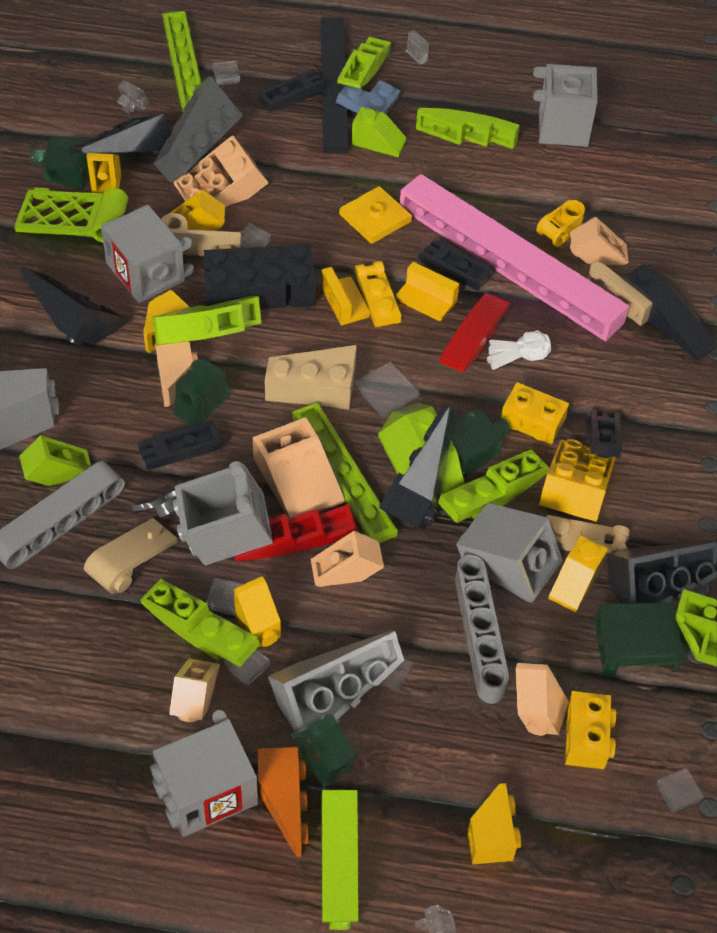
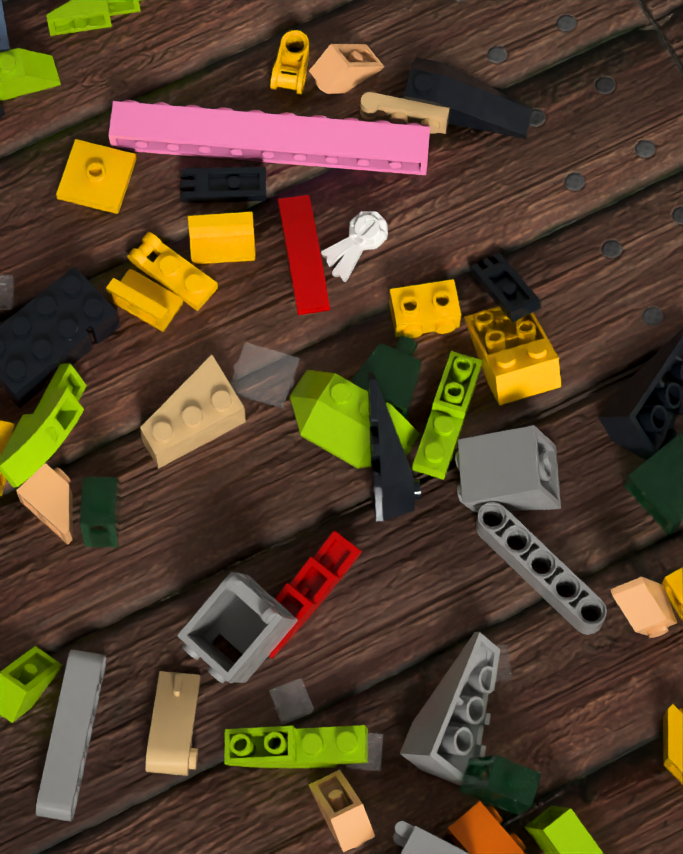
camera: 35 degrees left, 15 degrees up
(162, 504) = (163, 647): dark grey animal -> none
(180, 445) = (124, 577): black hinge -> none
(257, 611) = (344, 702): yellow slope -> none
(297, 468) = (259, 528): light nougat slope -> none
(347, 561) = (375, 588): light nougat slope -> none
(353, 485) = (295, 495): lime tile -> none
(568, 531) = (562, 406): tan plate -> none
(578, 573) = (584, 452): yellow slope -> none

